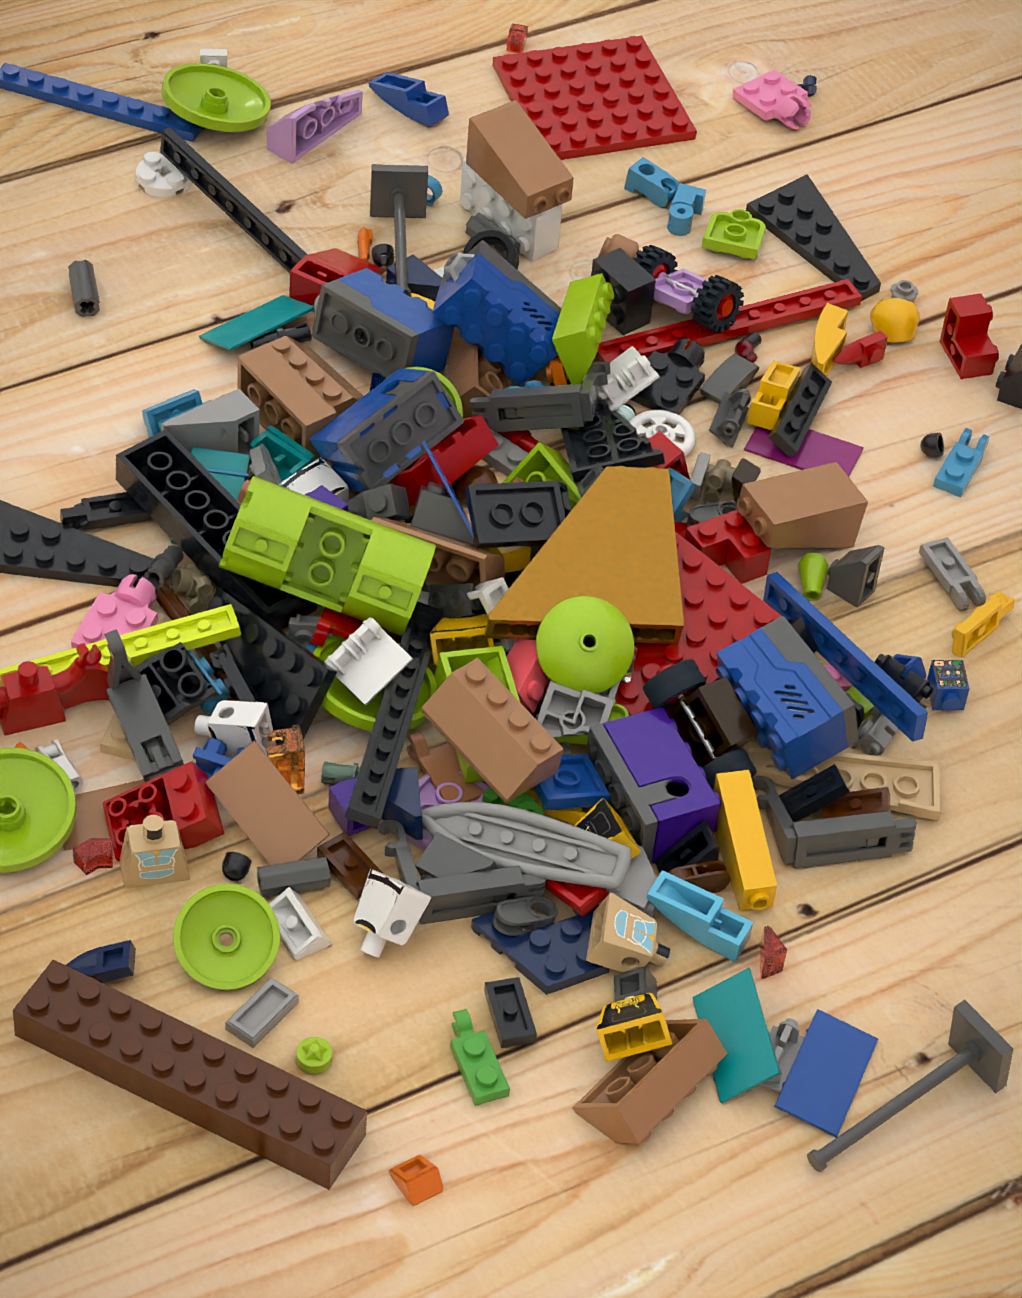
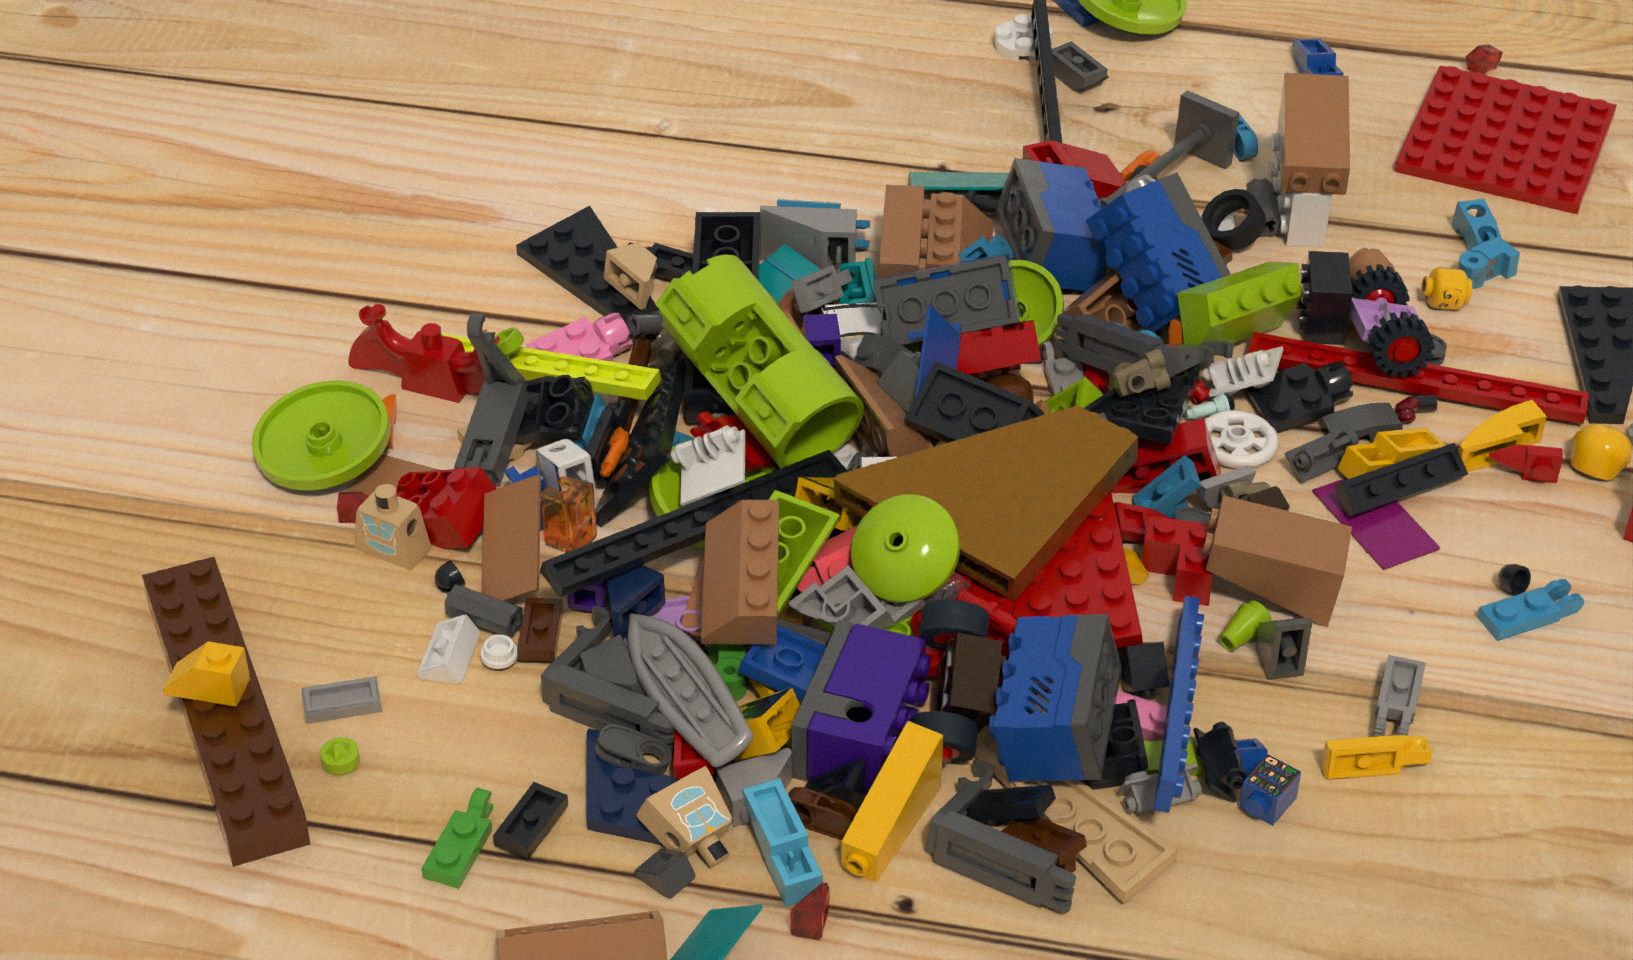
camera: 45 degrees right, 5 degrees down
(56, 750) = (408, 431): white bar -> none
(73, 640) = (510, 340): none -> lime tile
(84, 288) = (850, 93): dark grey axle -> none
(104, 534) = (631, 272): none -> tan slope
(107, 962) = (268, 590): dark blue plate -> none
(185, 1052) = (210, 674): none -> yellow slope
(229, 911) = (353, 609): lime dish -> none
(246, 180) = (1076, 67): none -> dark grey slope
(259, 689) = (618, 445): none -> orange piece
(312, 124) = (1199, 48): lavender wedge -> none
(339, 902) = (499, 652): none -> white plate
(358, 378) = (984, 248): none -> dark azure leg
(388, 911) = (512, 675): white torso -> none
(417, 1179) = (303, 902): orange slope -> none
(587, 421) = (1148, 374): none -> dark tan plate
(632, 1027) = (618, 894): yellow torso -> none
(682, 241) = (1447, 288): none -> yellow head
(705, 661) = (1000, 618): none -> red pin
(734, 234) = (1515, 305): lime plate -> none

